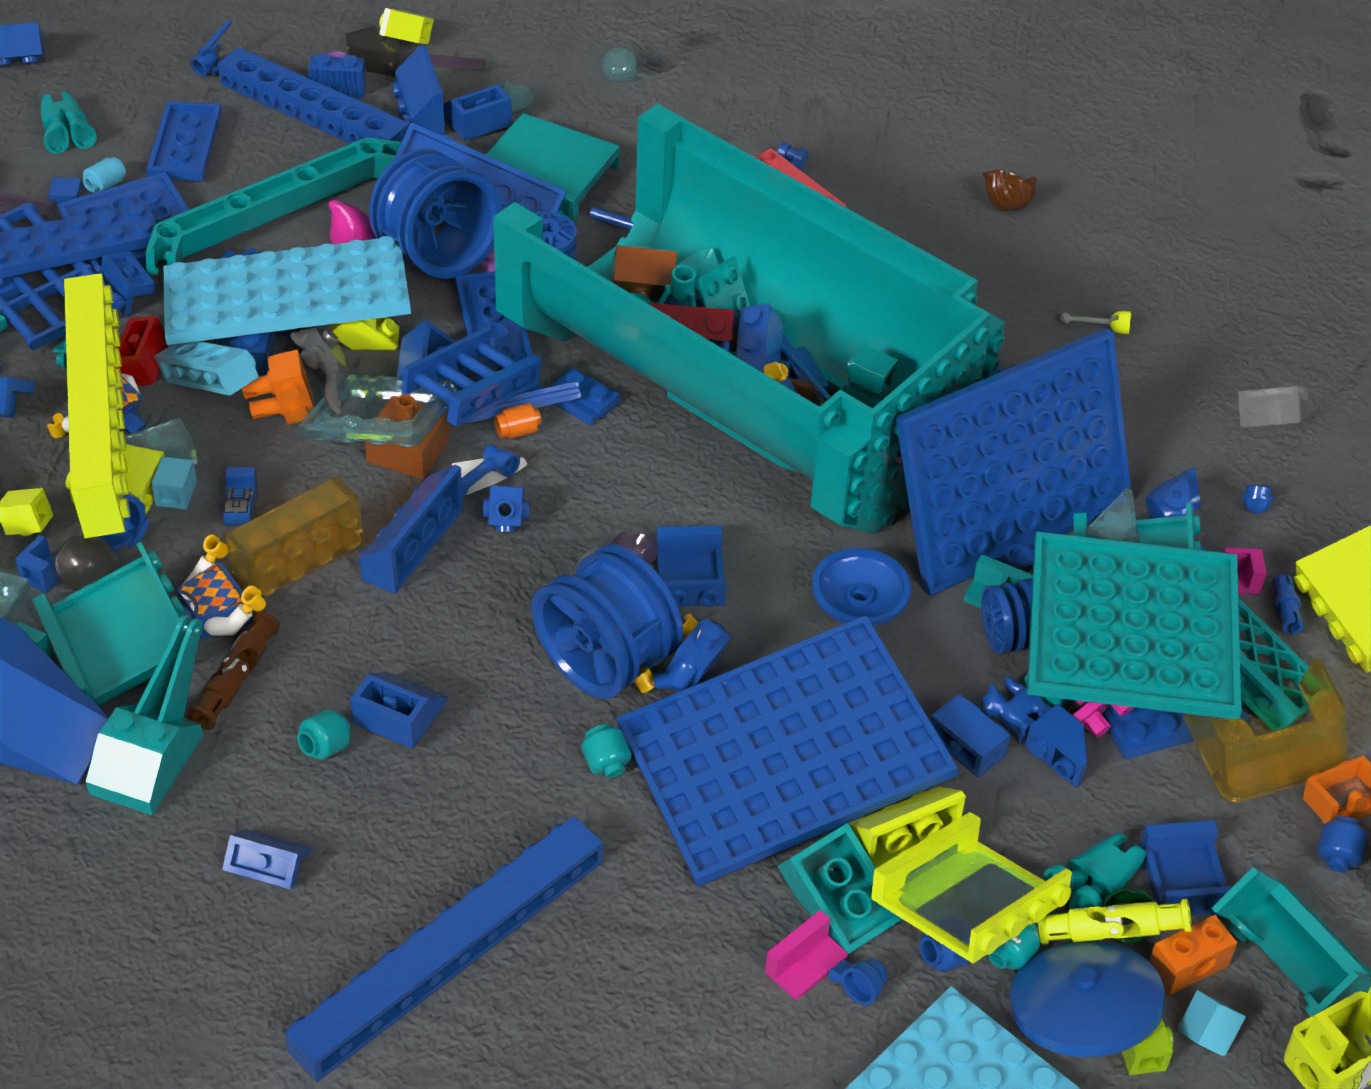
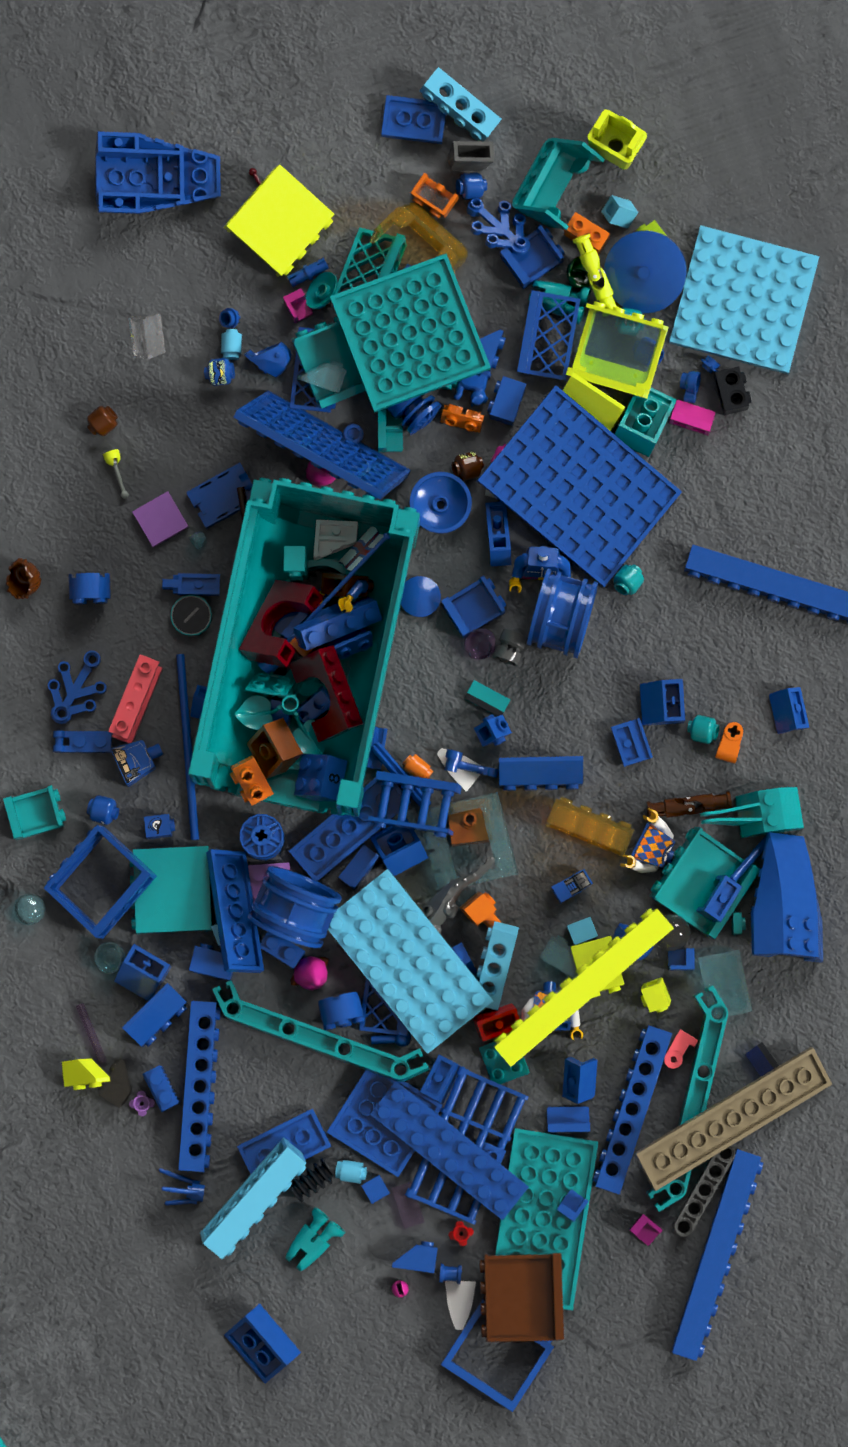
camera: 115 degrees left, 35 degrees up
(77, 626) = (720, 899): none -> blue panel
(96, 680) = (748, 861): none -> blue bar
(126, 137) = (311, 1181): none -> black piece
(149, 78) = (253, 1198): none -> medium azure brick
(280, 759) = (729, 746): none -> orange piece
(284, 224) = (341, 1011): none -> blue brick
(373, 648) = (631, 742): none -> blue plate
(438, 315) = (359, 867): none -> blue panel
(554, 531) = (487, 699): none -> teal tile
(561, 88) = (124, 902): none -> blue window
(604, 239) = (251, 780): none -> orange brick
(625, 184) = (159, 826): none -> blue brick
(726, 103) = (34, 812): none -> teal panel
(745, 525) = (420, 596): none -> blue dish
(762, 626) = (498, 534): none -> blue slope
(820, 346) = (282, 599): none -> dark red arch
(820, 1020) = (727, 391): none -> black brick
(826, 168) = (75, 690): none -> blue plant
(879, 1021) = (710, 364): none -> blue plate
(901, 643) = (467, 466): none -> reddish brown head
(962, 230) = (89, 587): none -> blue brick
(983, 668) = (470, 421): none -> orange hinge
(1022, 334) = (160, 519): none -> medium lavender tile
(1060, 800) = (530, 334): none -> blue fence
(1175, 328) = (102, 420): none -> reddish brown head
(1184, 452) = (219, 371): none -> blue head
(1218, 483) = (231, 344): none -> medium azure brick
(1253, 845) = (518, 243): none -> blue plant
(1256, 605) = (320, 290): none -> teal dish

